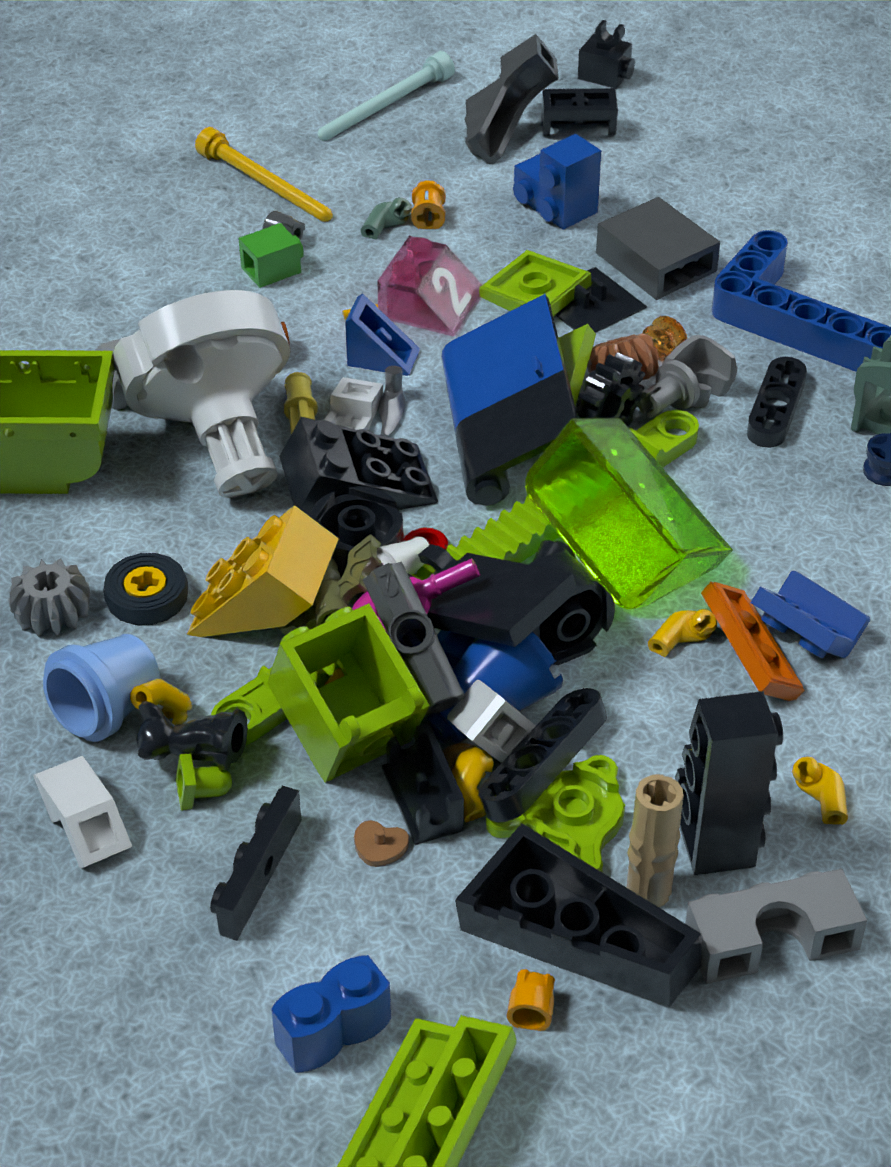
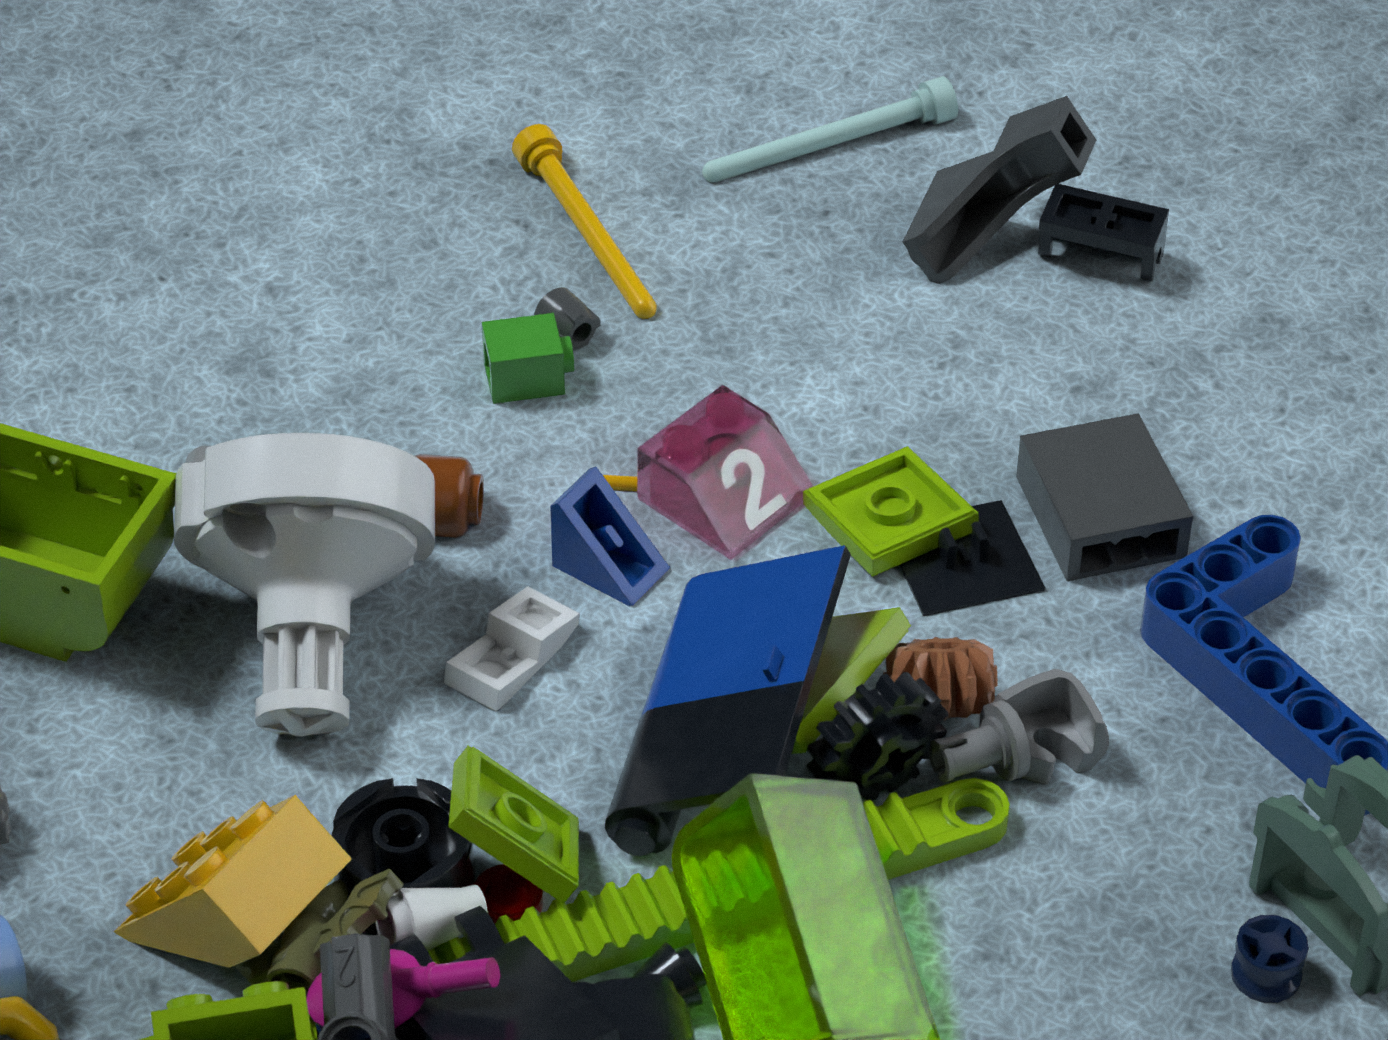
camera: 20 degrees right, 0 degrees up
(158, 601) = (93, 871): black bush -> none
(299, 399) = (445, 618): light yellow axle -> none
(335, 457) = (431, 711): black slope -> none
(386, 215) = (727, 334): sand green arm -> none
(392, 401) = (582, 646): flat silver bar -> none
(420, 498) = (515, 823): none -> lime tile
(422, 207) = (797, 334): light orange bush -> none
(561, 181) = (1005, 350): blue brick -> none
(606, 58) = (1194, 148): black brick -> none
(666, 335) = (1035, 652): clear orange wheel -> none
(773, 389) = (1160, 784): black beam -> none

